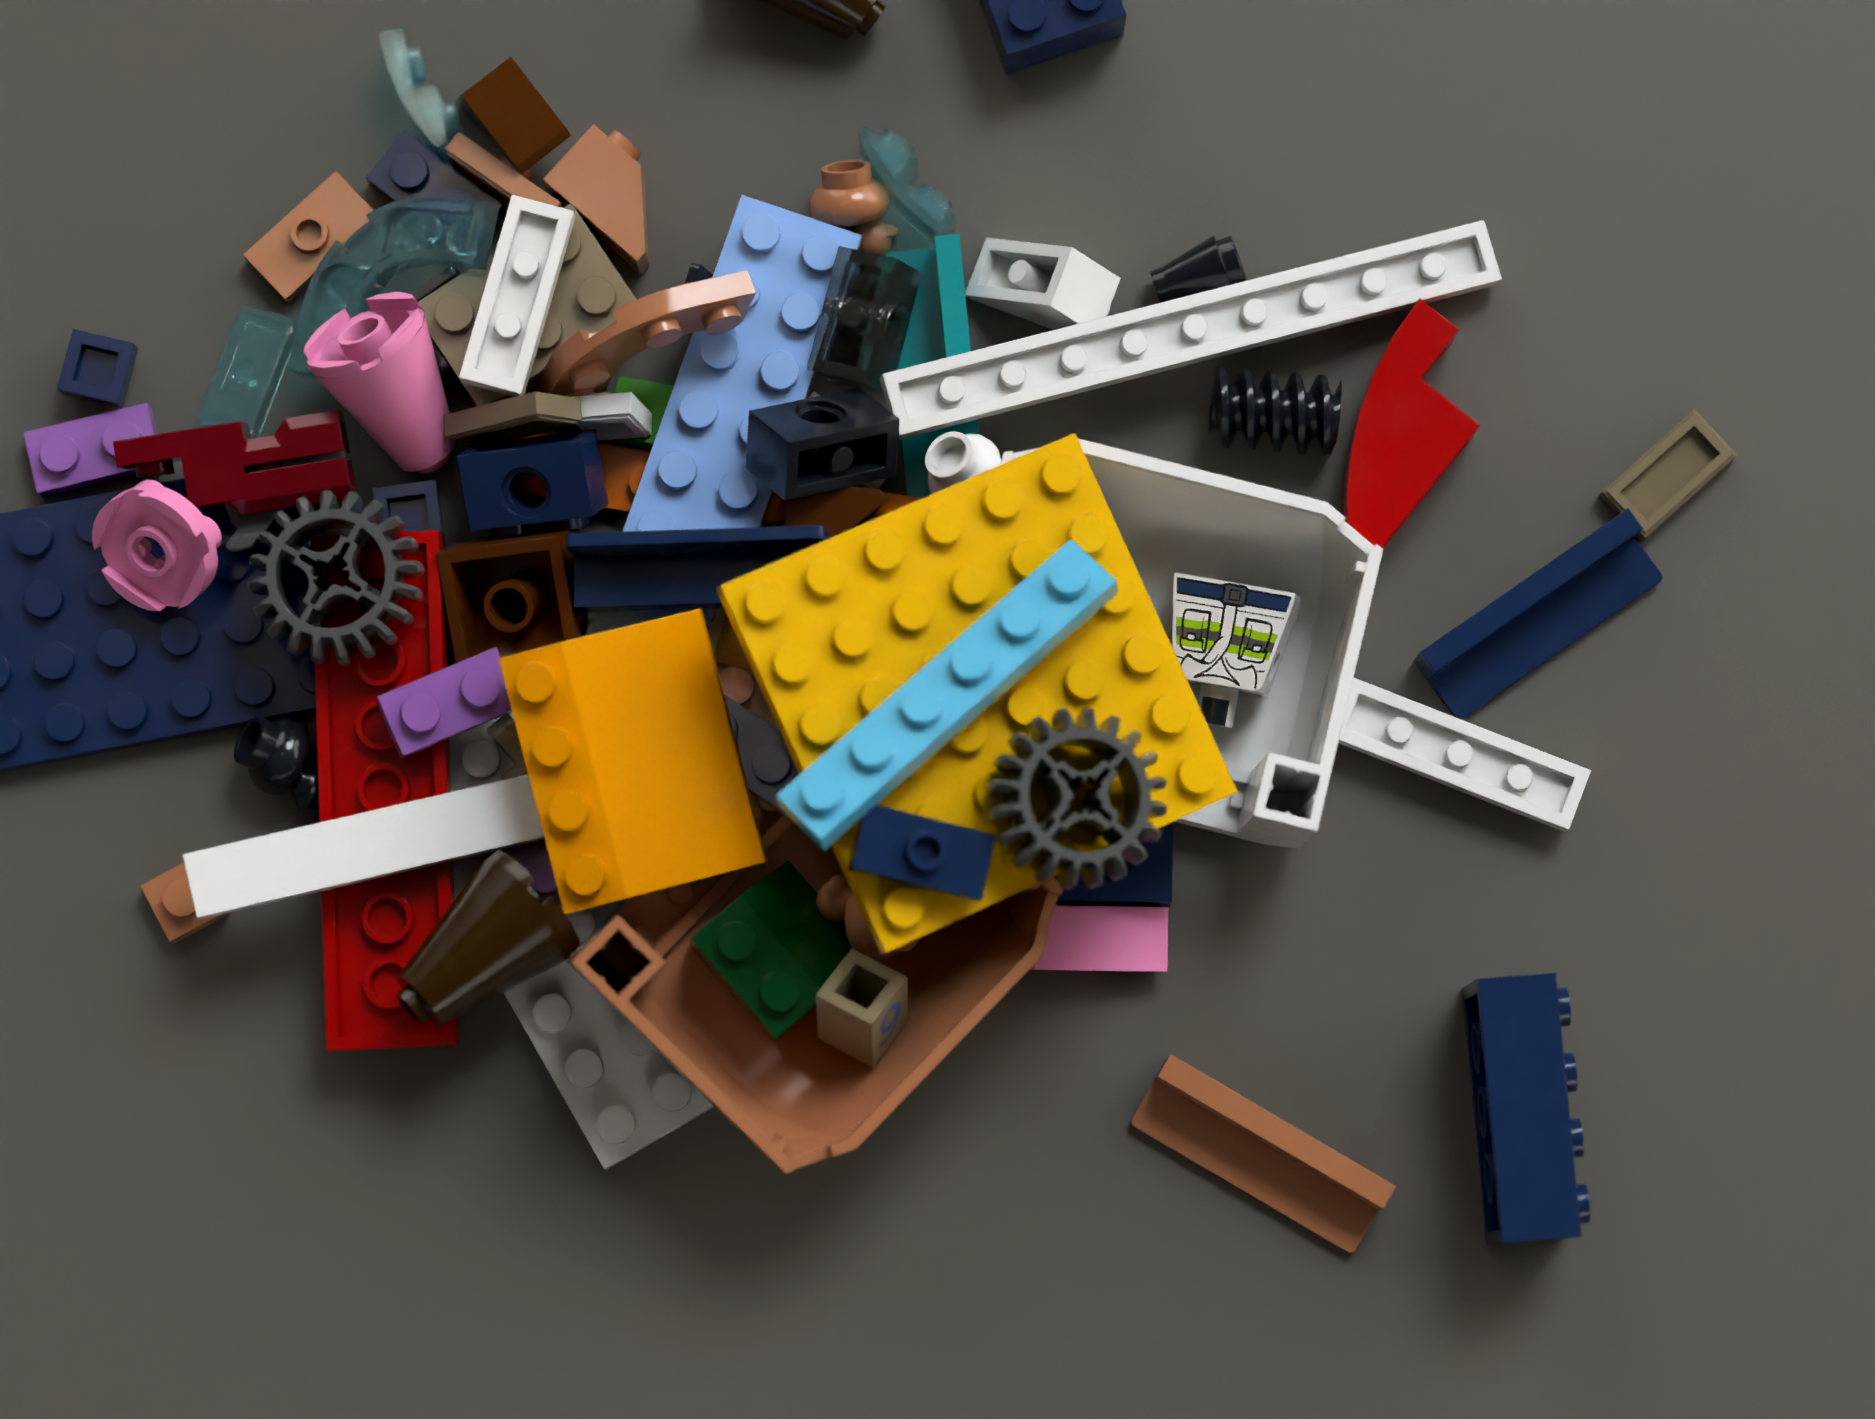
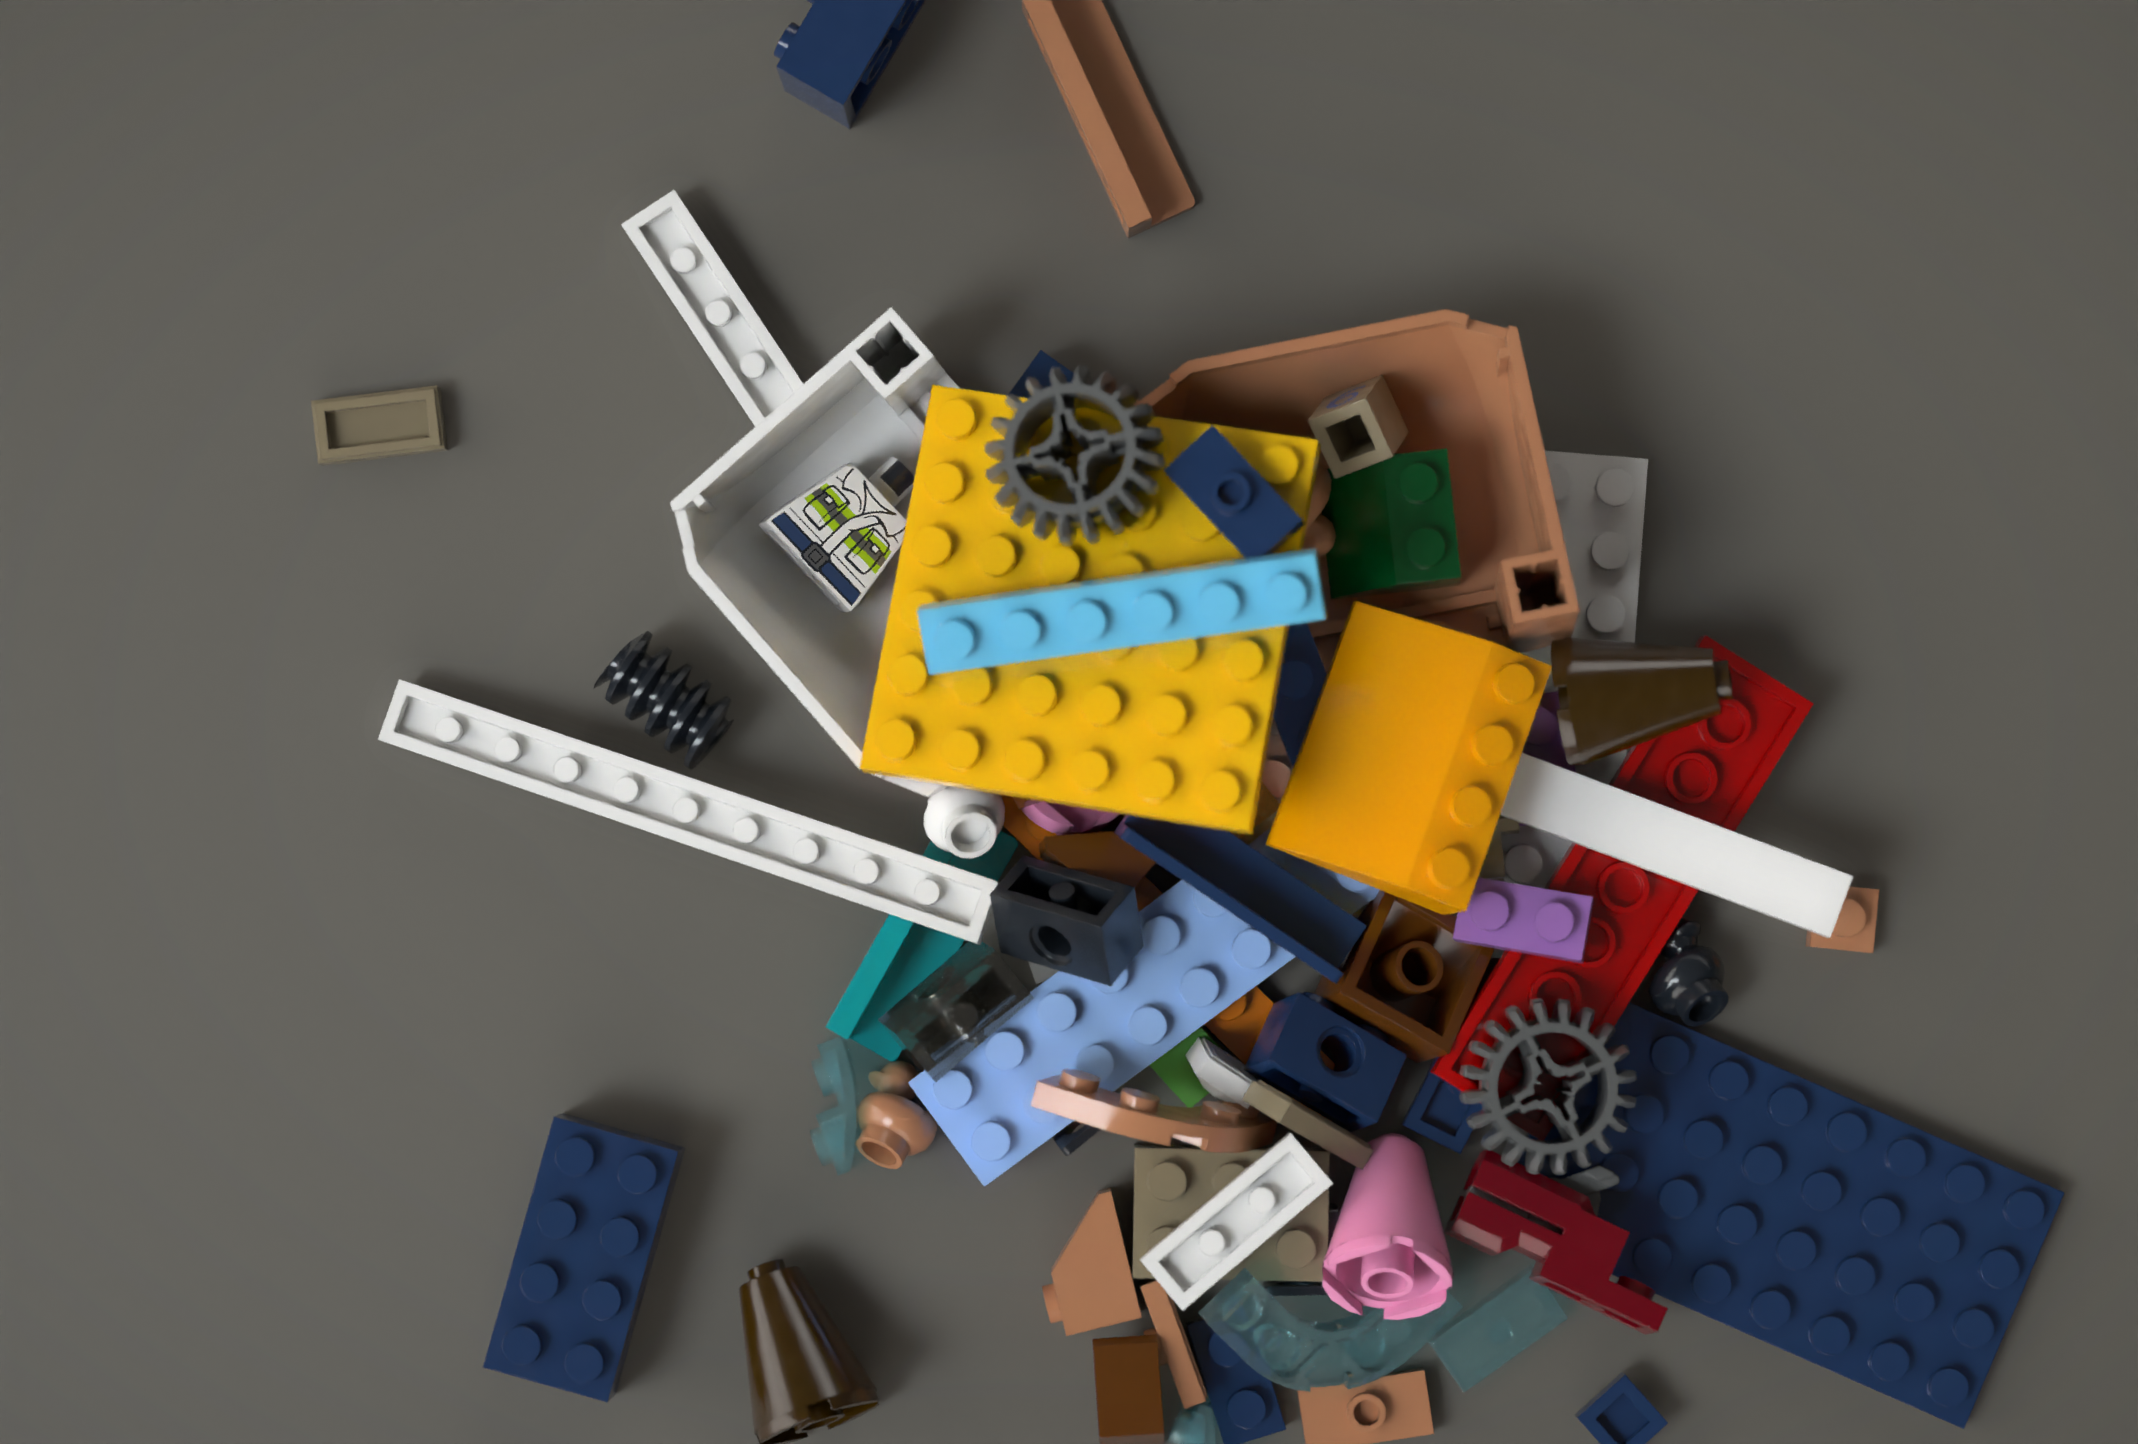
camera: 140 degrees left, 5 degrees up
(83, 450) = (1673, 1357): medium lavender plate -> none
(181, 530) = (1649, 1207): bright pink plate -> none
(1041, 283) = (783, 941): white slope -> none
(1106, 939) = (1104, 346): bright pink slope -> none
(1200, 269) = (644, 860): black cone -> none
(1402, 430) = (577, 607): red slope -> none
(1539, 616) = (569, 381): dark blue panel -> none

